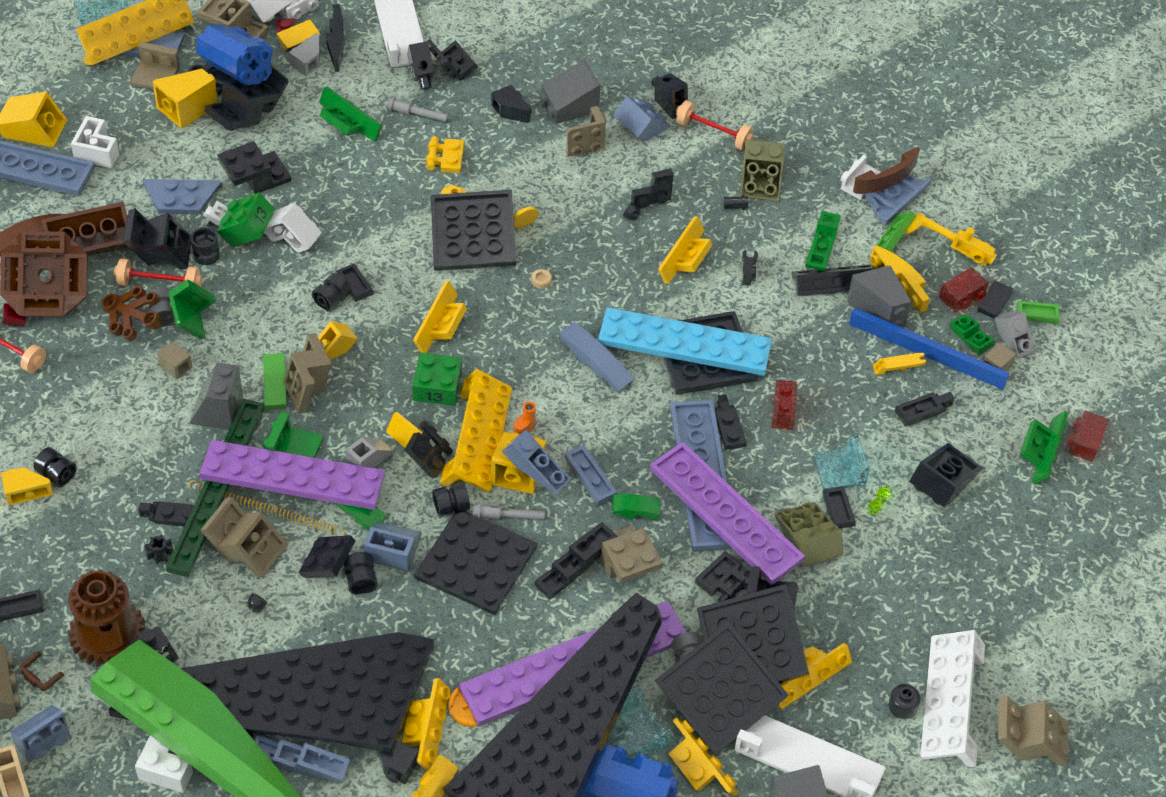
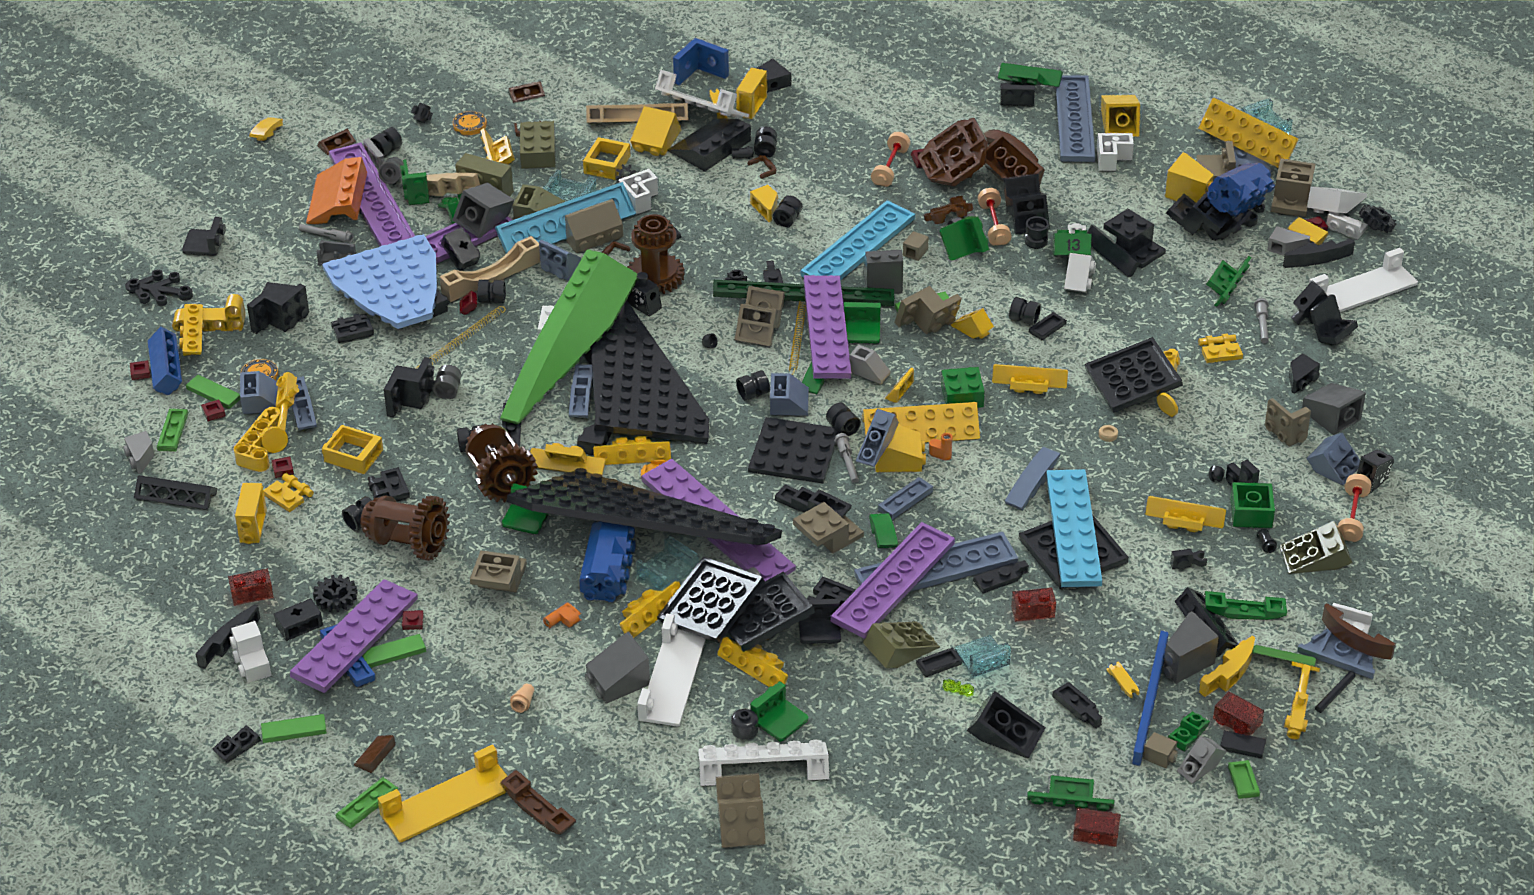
camera: 80 degrees right, 10 degrees down
(144, 414) = (866, 236): none -> medium azure plate
(181, 196) = (1088, 209): sand blue wing -> none
(271, 190) = (1112, 251): none -> black tile
(327, 556) = (768, 363): black plate -> none
(426, 455) = (879, 389): black plate -> none
(692, 195) = (1252, 505): none -> green brick
(891, 666) = (777, 714): none -> green bracket
(939, 213) = (1335, 692): none -> black bar

